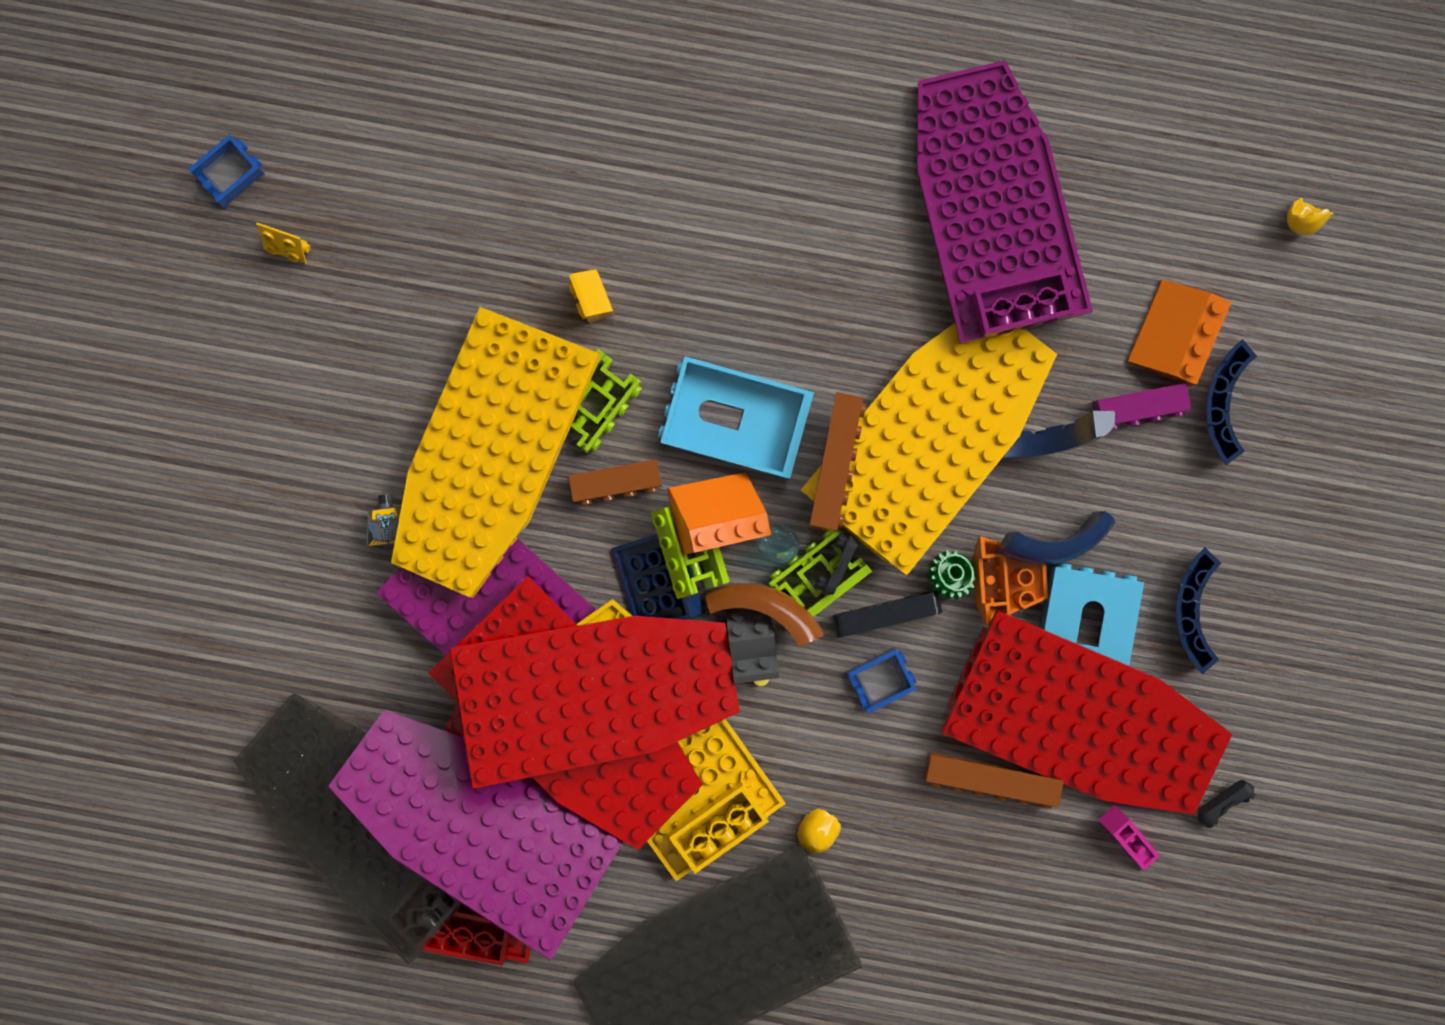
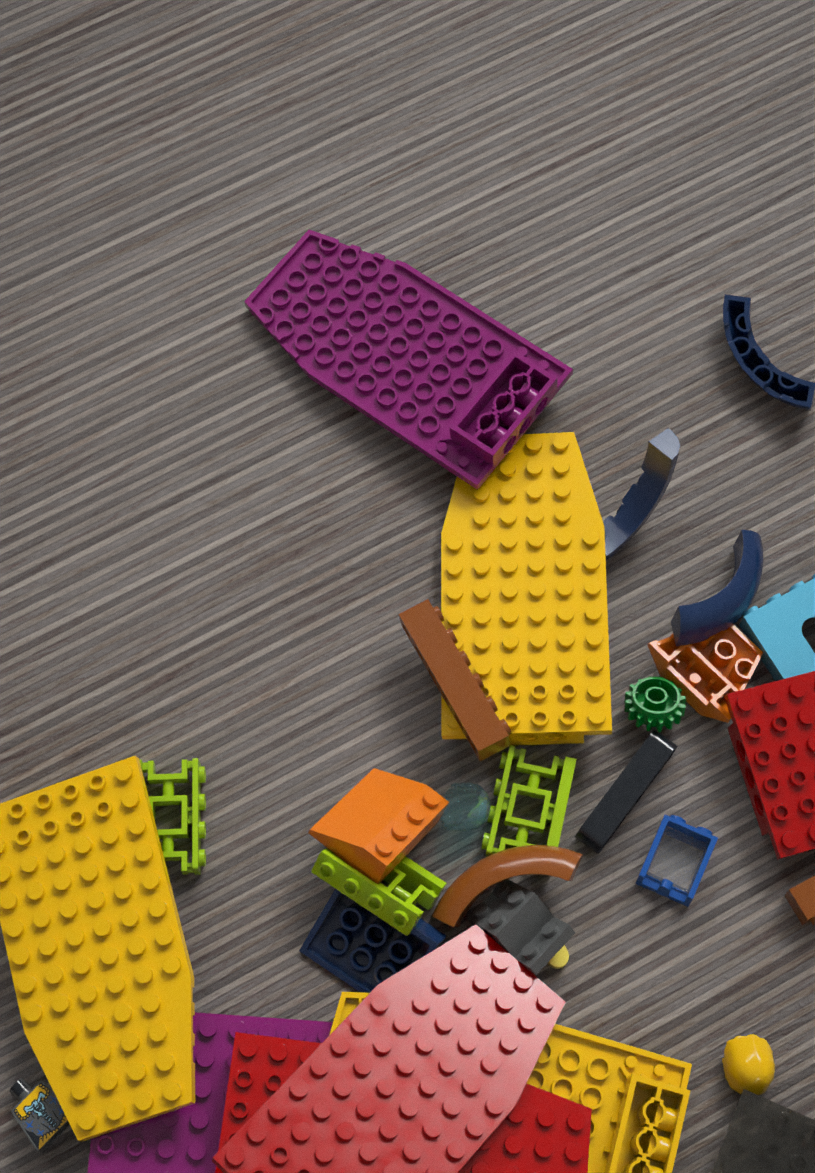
camera: 40 degrees left, 20 degrees down
(591, 295) = (83, 717): yellow slope -> none
(615, 481) = (250, 877): dark orange brick -> none
(768, 429) = (361, 707): medium azure panel -> none
(830, 584) = (547, 803): black piece -> none
(1146, 404) = (698, 411): magenta brick -> none
(1179, 332) = (666, 334): orange slope -> none
(1305, 218) = (687, 165): yellow hair -> none

